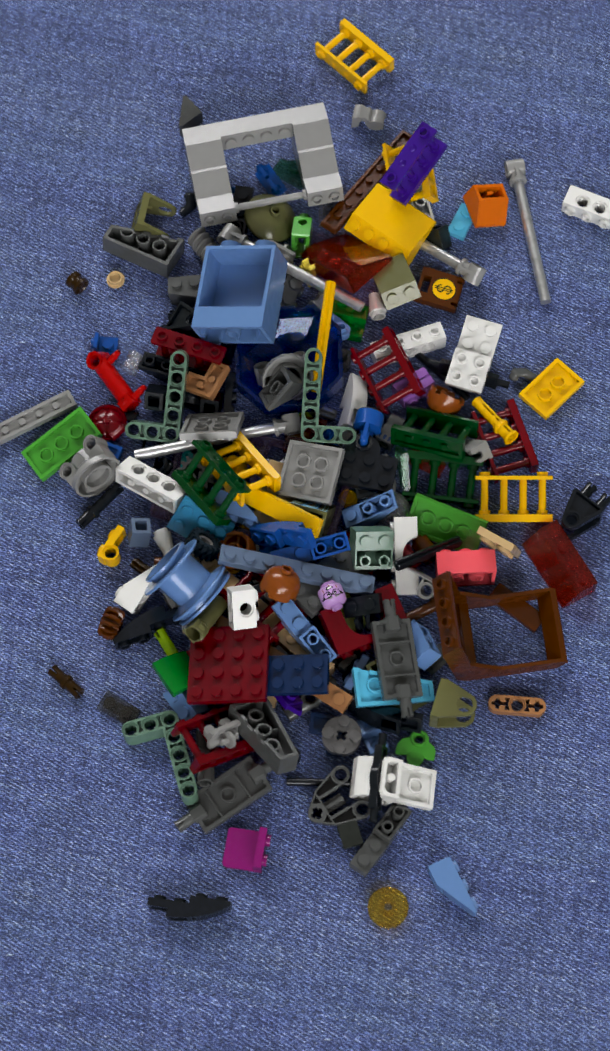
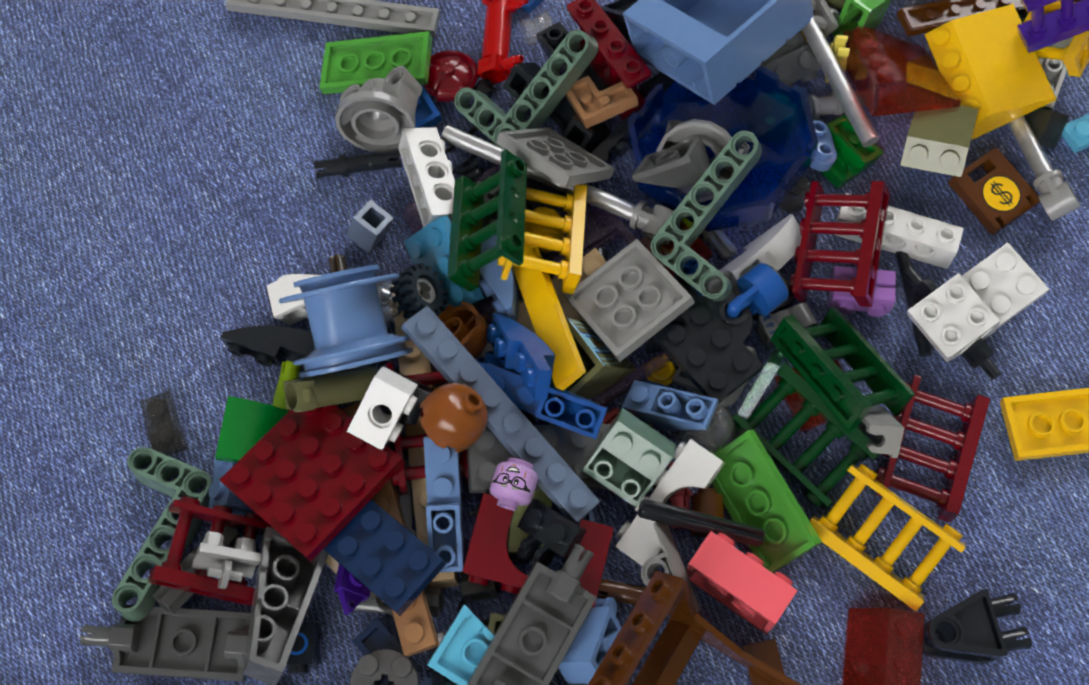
camera: 40 degrees right, 0 degrees up
(66, 682) = (136, 343): dark brown pin -> none
(111, 622) = (241, 309): reddish brown gear -> none
(115, 538) = (328, 219): yellow plate -> none
(163, 539) = (393, 257): white cone -> none
(324, 327) = (793, 129): yellow axle -> none
(359, 663) = (487, 604): medium blue plate -> none
(376, 308) = (888, 162): white cone -> none
(382, 575) = (622, 508): black piece -> none
(443, 400) = (888, 334): dark orange cylinder -> none
(496, 542) = (813, 593): tan plate -> none
(499, 425) = (941, 420): yellow pin -> none
(522, 372) = (1028, 372): dark grey arm -> none

